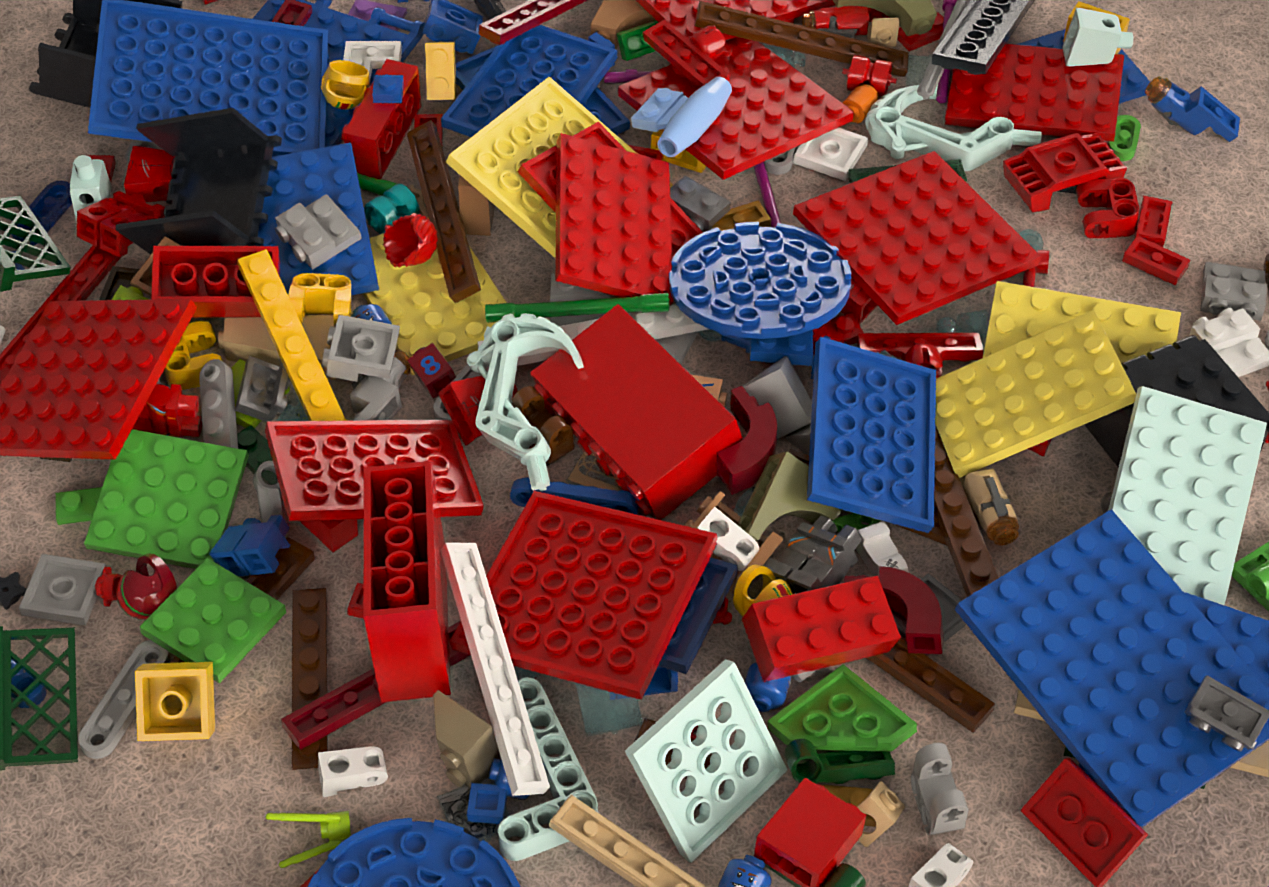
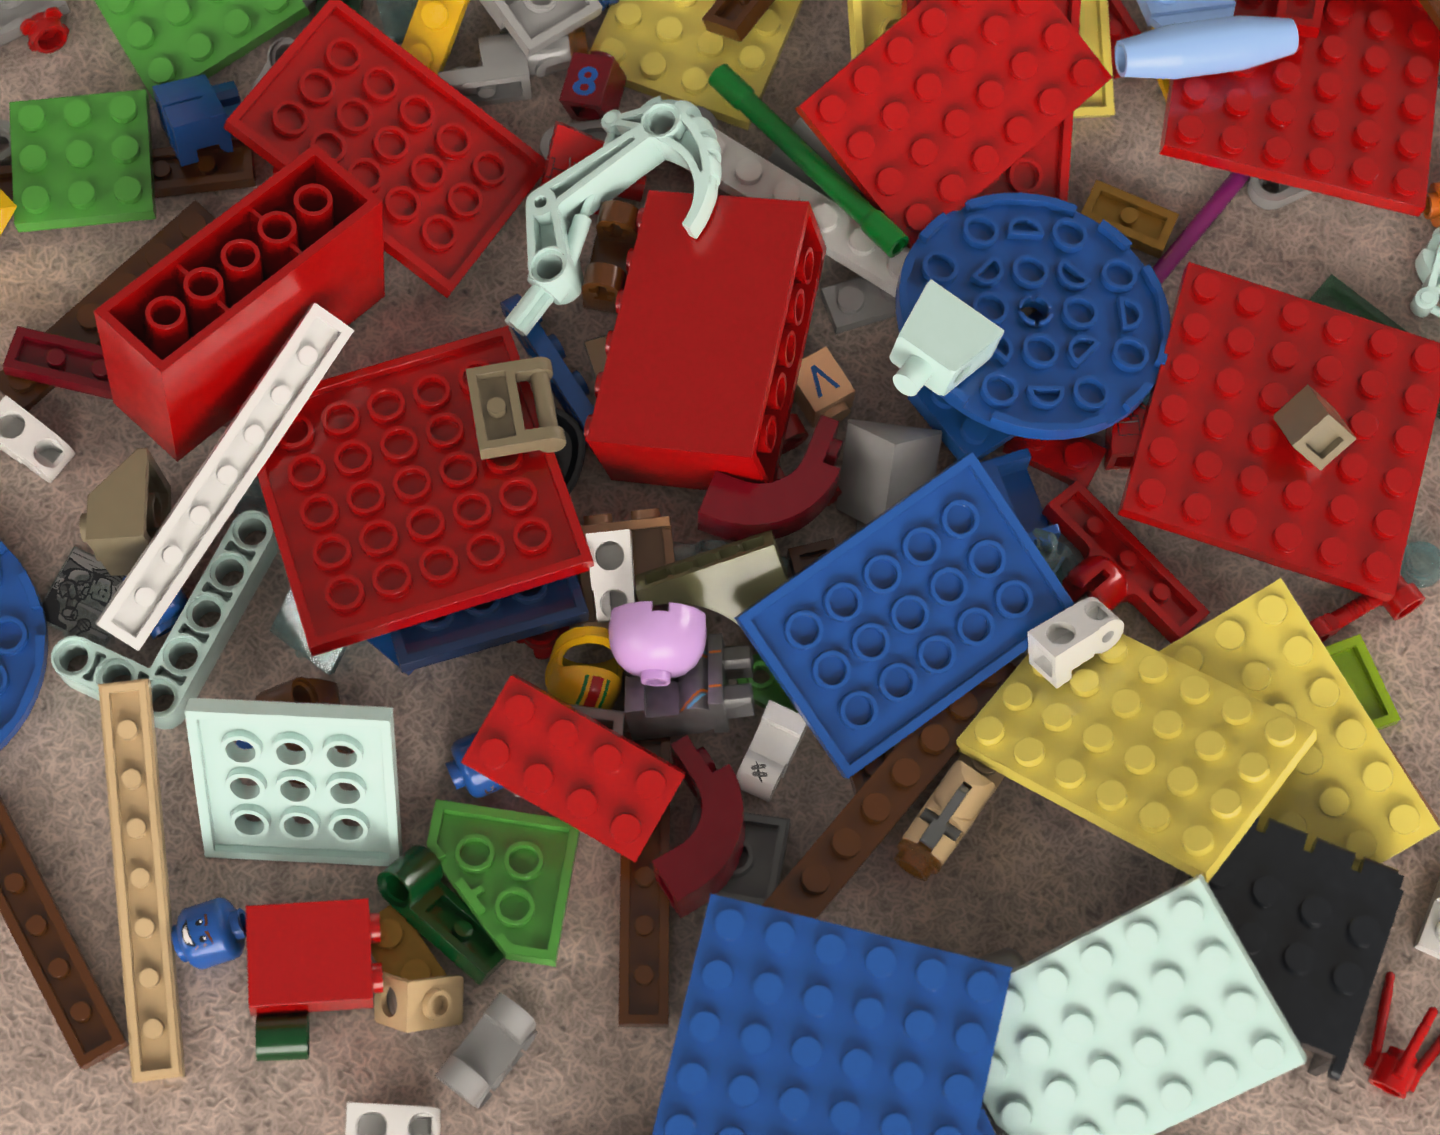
camera: 45 degrees right, 20 degrees up
(142, 594) = (56, 75): dark red helmet -> none
(486, 803) = (88, 600): blue plate -> none
(590, 518) = (499, 411): none -> dark tan plate
(699, 203) = (1101, 154): flat silver bracket -> none
(746, 308) = (941, 343): none -> light aqua torso
(787, 539) = (657, 642): none -> lavender cylinder
(832, 153) = (1345, 235): white plate -> none
(932, 213) = (1314, 427): none -> dark tan panel
(949, 383) = (1072, 639): none -> white leg
(966, 323) = (1219, 593): clear light blue plate -> none

